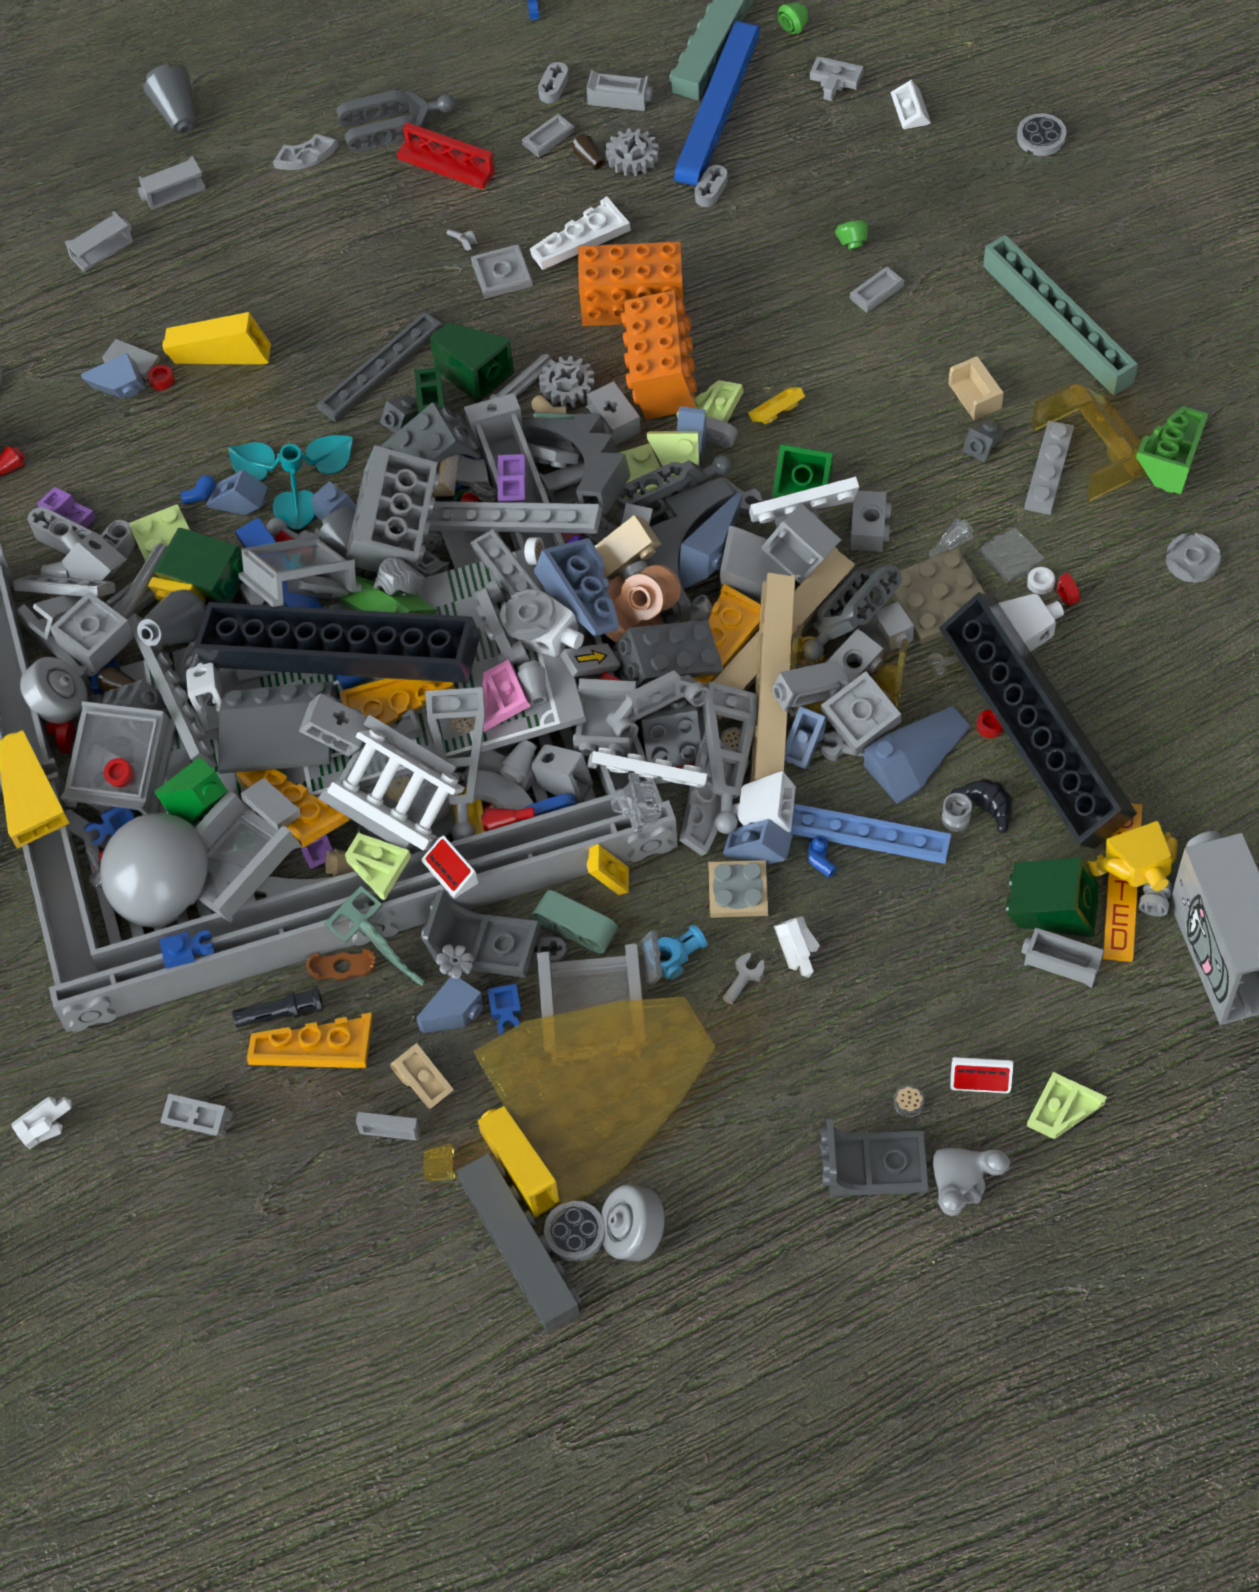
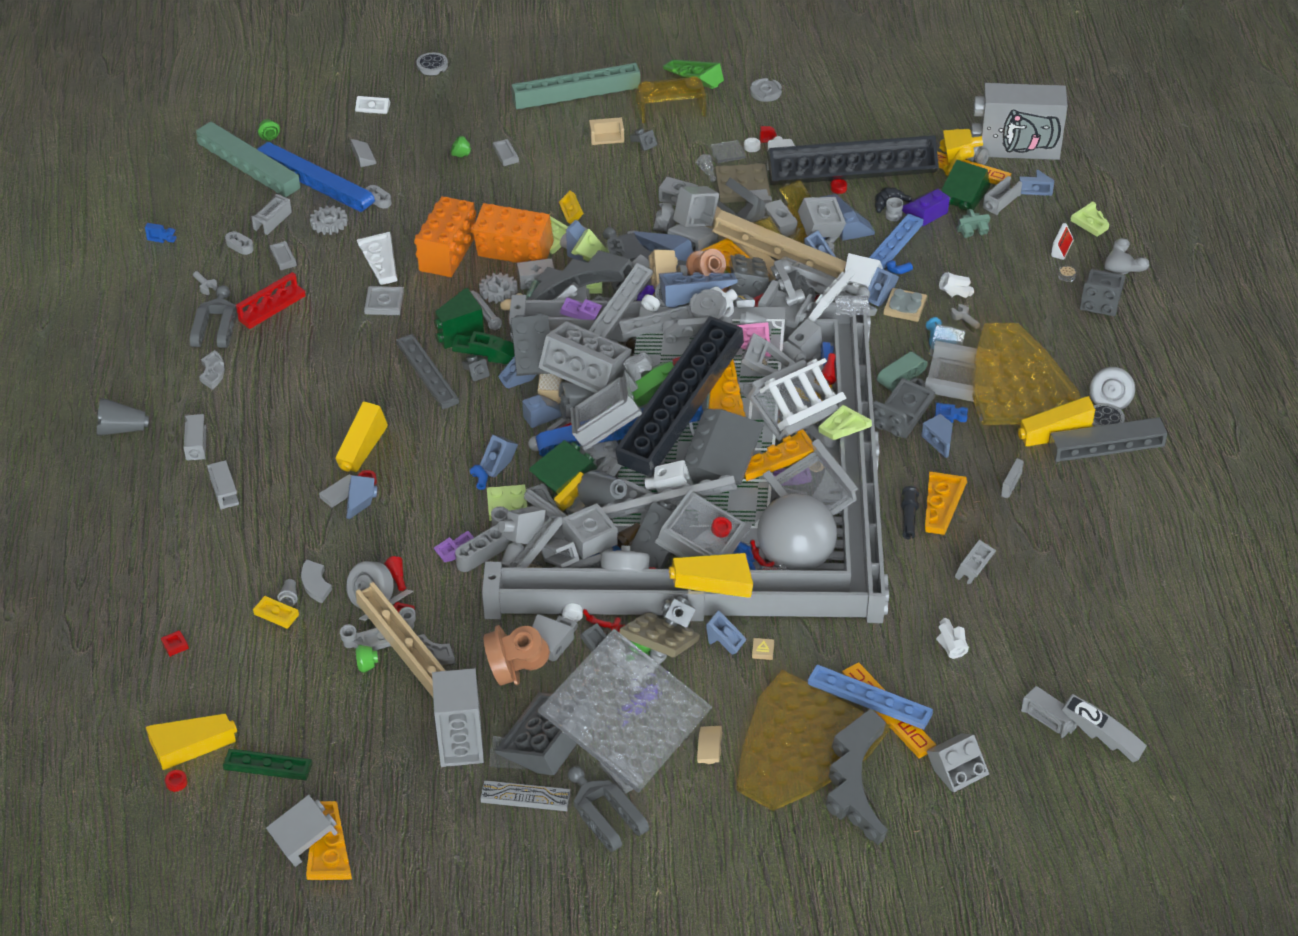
camera: 75 degrees left, 15 degrees down
(181, 948) = (868, 523): blue plate -> none
(192, 791) = (757, 486): green slope -> none
(270, 804) = (783, 456): light grey tile -> none
(295, 508) = (484, 408): teal plant -> none
(323, 967) = (890, 471): dark orange piece -> none
(333, 724) = (744, 407): light grey brick -> none
(366, 927) = (889, 442): sand green piece -> none
(420, 1073) = (978, 456): tan plate -> none
(439, 1163) = (1043, 462): clear yellow slope -> none
(450, 867) = (861, 391): slope -> none
(454, 961) = (916, 419): light grey plant -> none
(462, 82) = (205, 284): none -> light grey bar
(467, 238) = (347, 307): light grey hand -> none
(587, 150) = (312, 239): dark brown cone -> none
(608, 869) = (878, 344): yellow plate -> none
(796, 133) = (362, 153): none -> light grey slope
(801, 470) = (630, 208): green slope -> none
(809, 684) = (799, 228): light grey window -> none
(815, 498) = (668, 193): white wing -> none
(835, 75) = (328, 125): light grey hinge -> none
(974, 944) = (973, 221): none -> sand green hips
(984, 855) = (928, 206): none -> dark purple slope
(1049, 467) = (676, 122): light grey plate -> none
(1117, 1005) = (1037, 185): none -> sand blue slope

